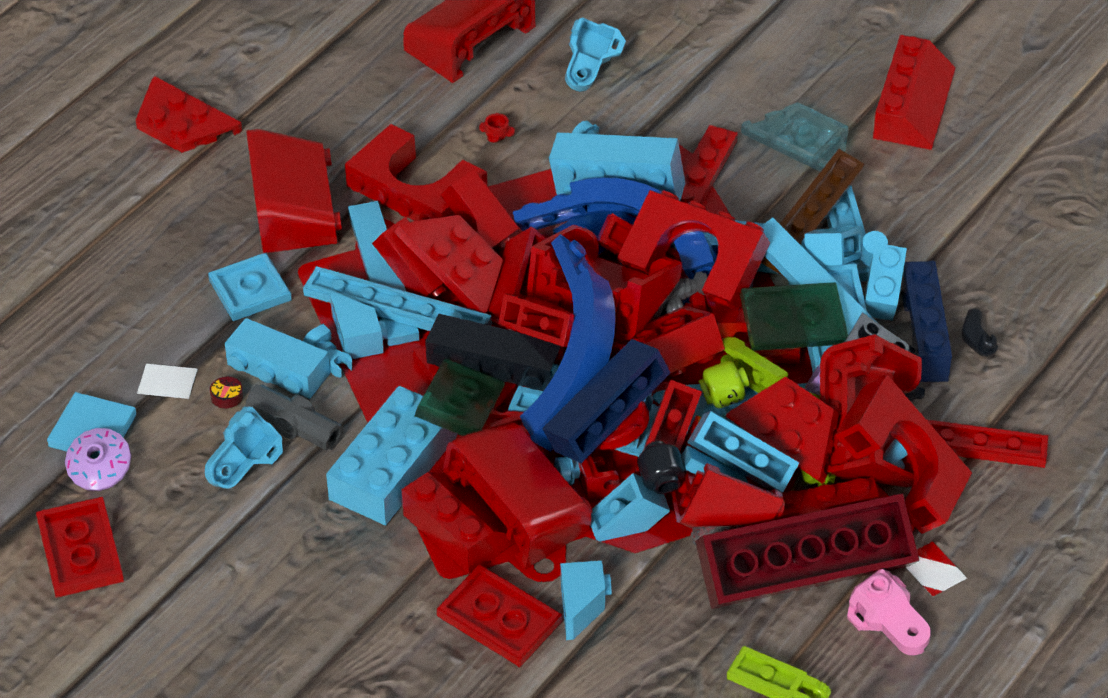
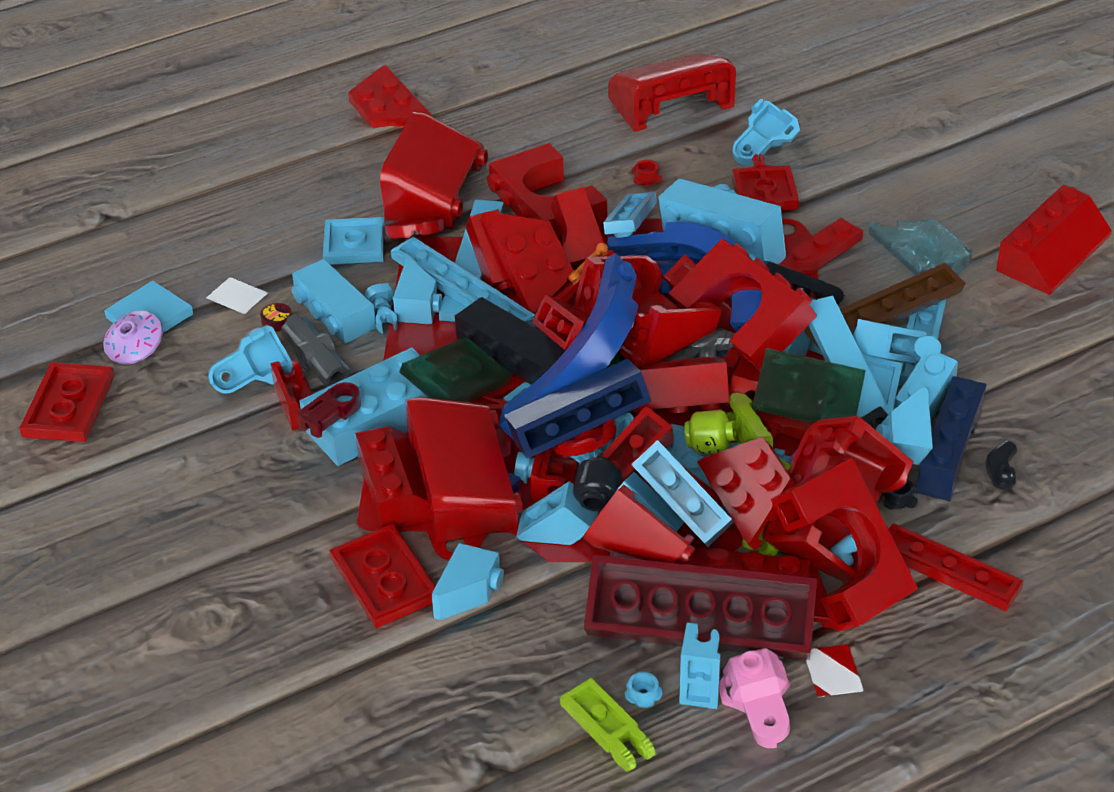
camera: 25 degrees right, 5 degrees down
(299, 469) = (289, 390): none -> red hinge
(308, 254) = (406, 228): none -> red tile
(367, 475) = (327, 409): none -> dark red piece
(506, 262) = (601, 248): none -> orange hinge
(518, 180) = (629, 214): none -> medium azure plate
(620, 110) = (767, 184): none -> red plate
(737, 208) = (806, 283): none -> black hinge
(790, 634) = (643, 690): none -> medium azure plate
(835, 606) = (699, 669): none -> medium azure hinge
(901, 323) = (910, 426): none -> medium azure slope

